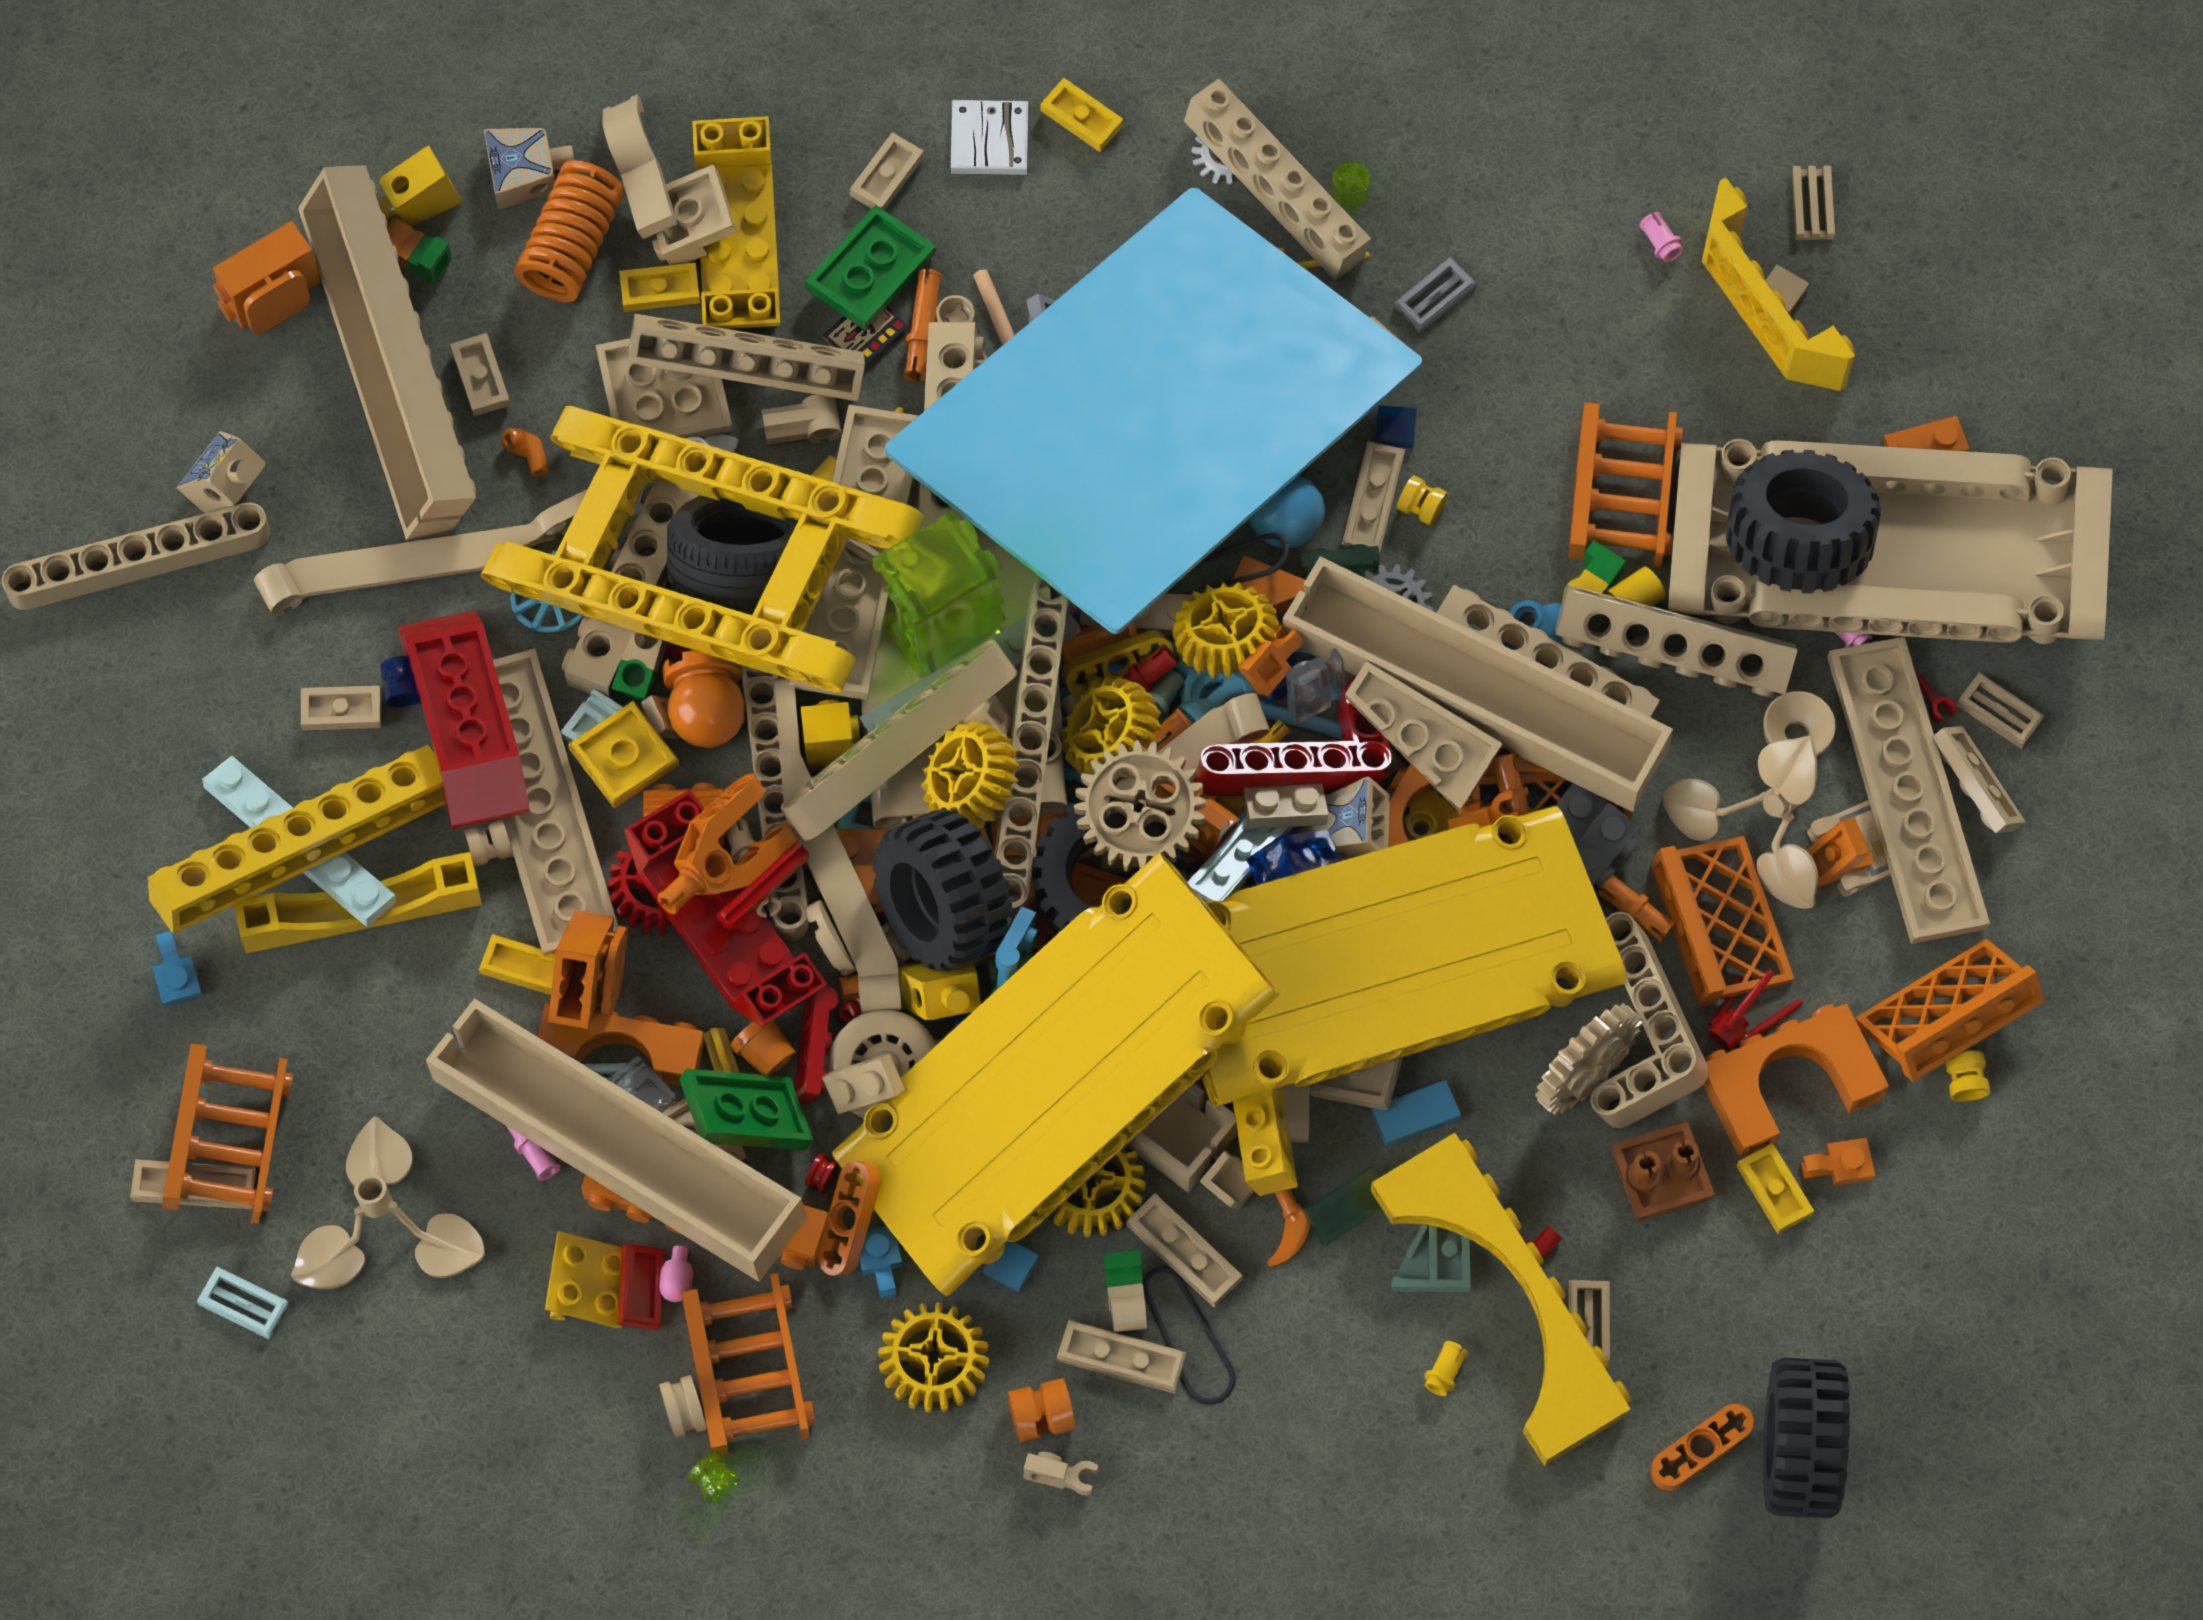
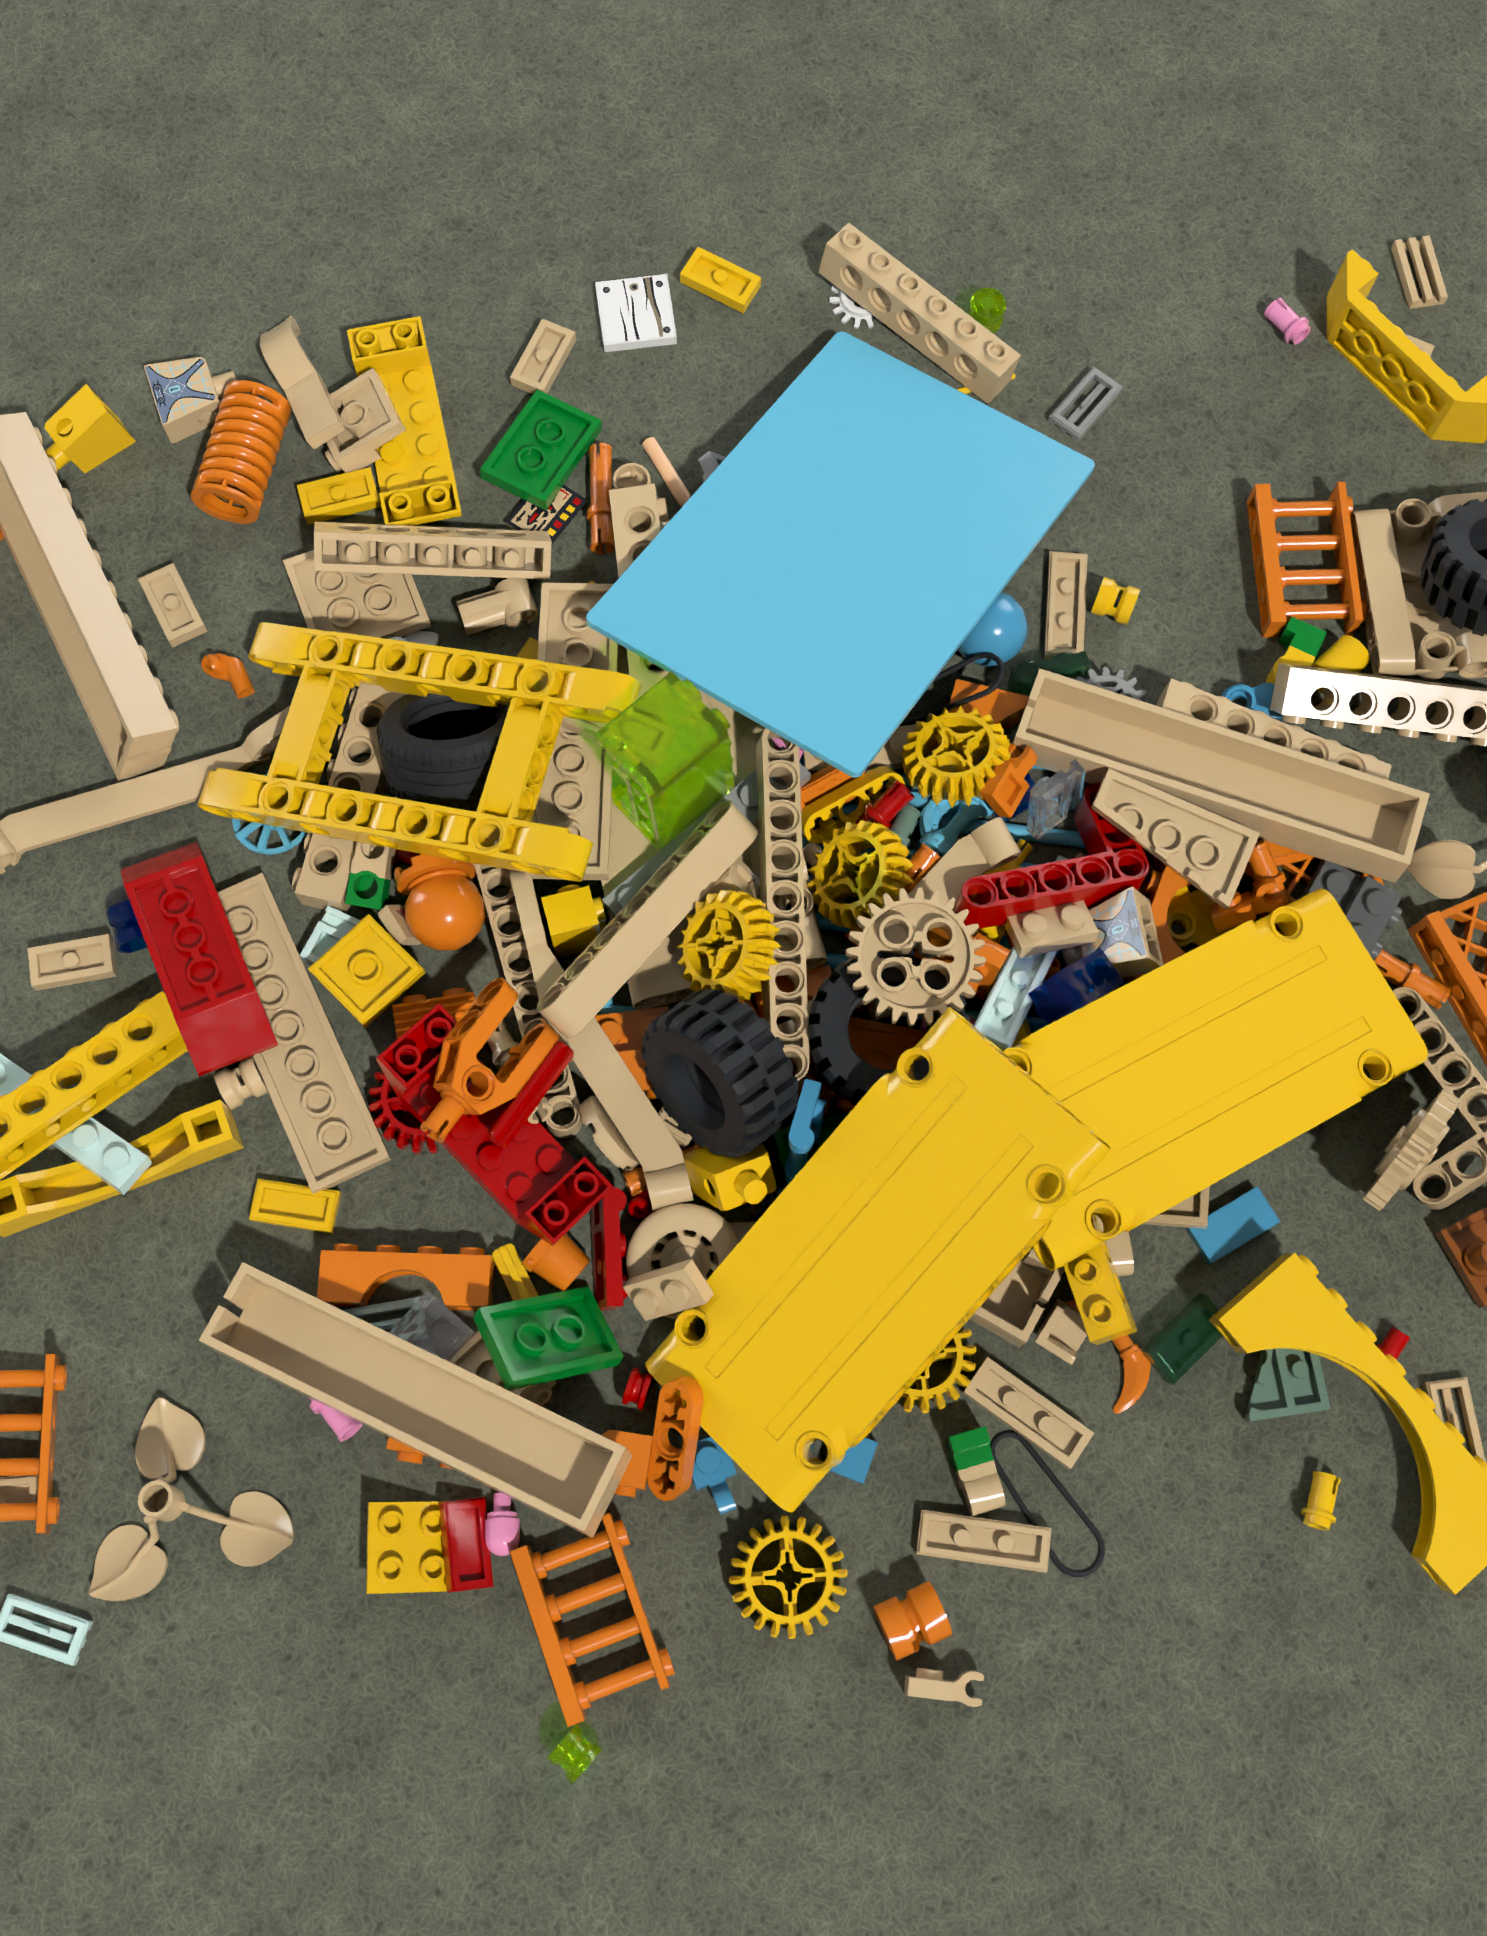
camera: 10 degrees left, 5 degrees up
(418, 251) = (95, 492): green leg -> none
(587, 969) = (358, 1211): orange brick -> none
(682, 1406) = (529, 1680): tan wheel -> none
(1396, 426) = (1074, 533): clear blue tile -> none

